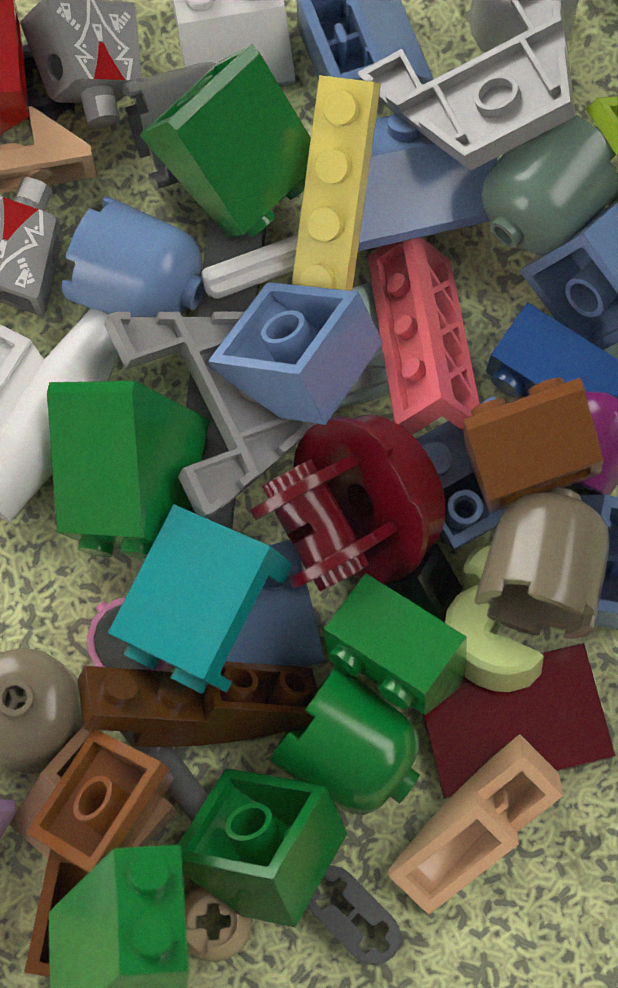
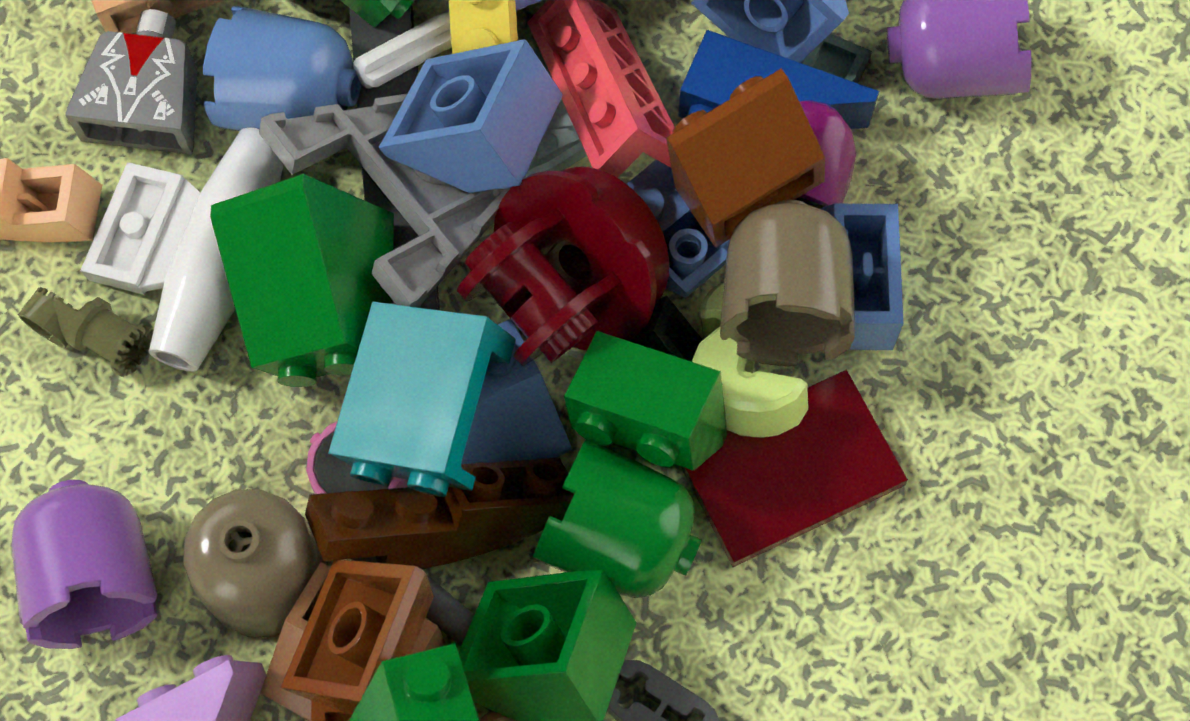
camera: 10 degrees left, 5 degrees down
(476, 825) = (774, 583): light nougat slope -> none

